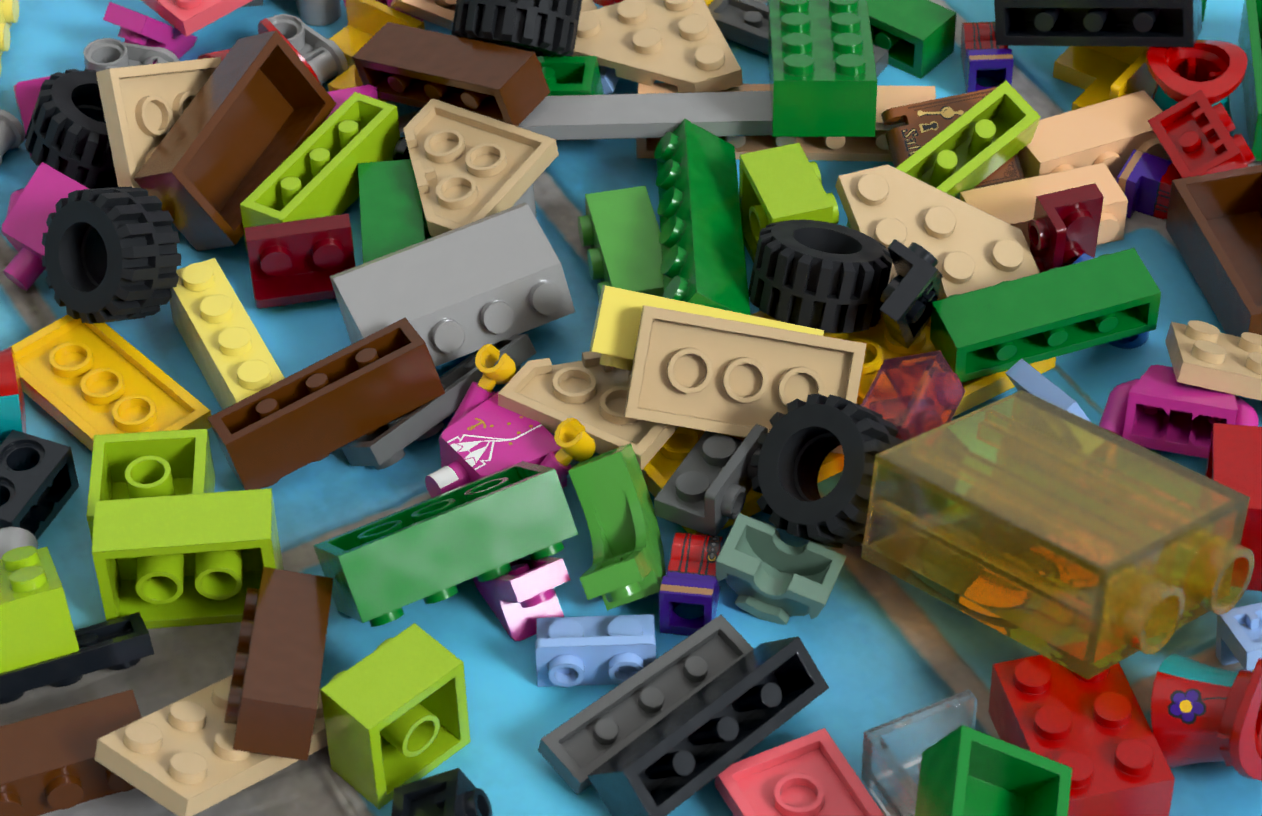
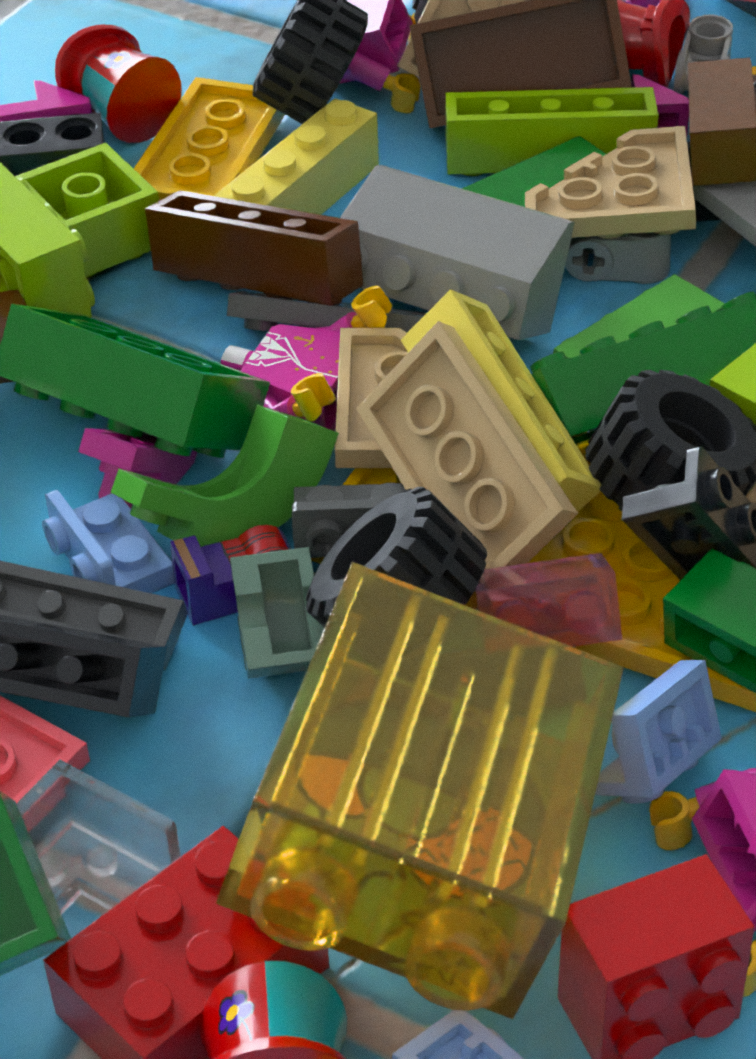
camera: 60 degrees right, 0 degrees up
(296, 259) = (441, 151): dark red bracket -> none

